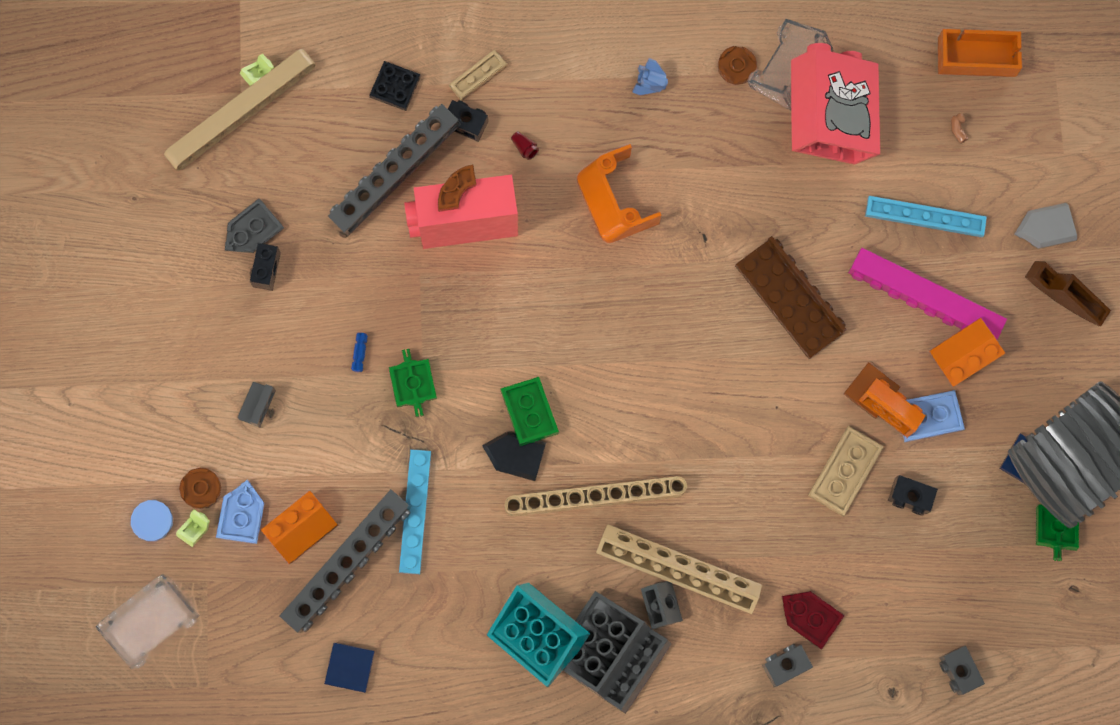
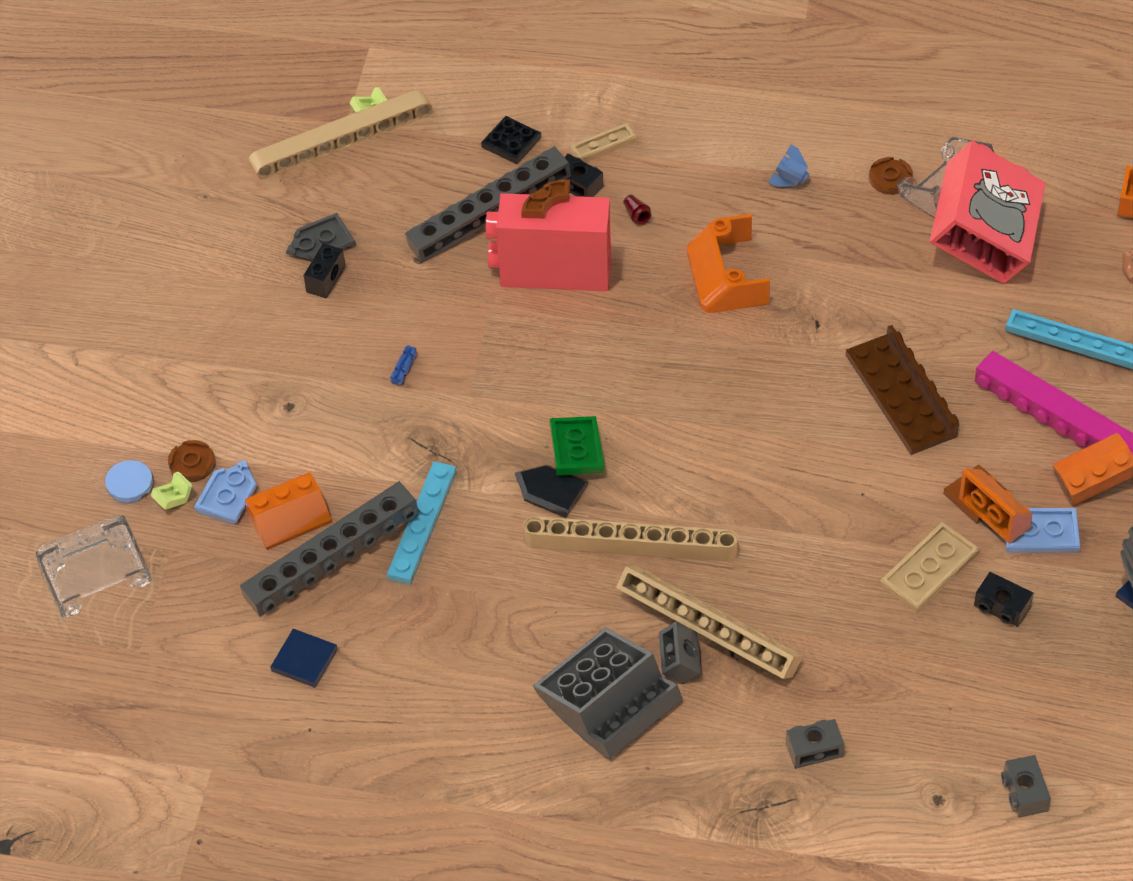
camera: 20 degrees right, 25 degrees down
(256, 404) = (278, 394): dark grey panel -> none
(412, 383) = (453, 400): green plate -> none
(537, 633) = (526, 653): teal slope -> none
(811, 617) = (856, 703): dark red tile -> none

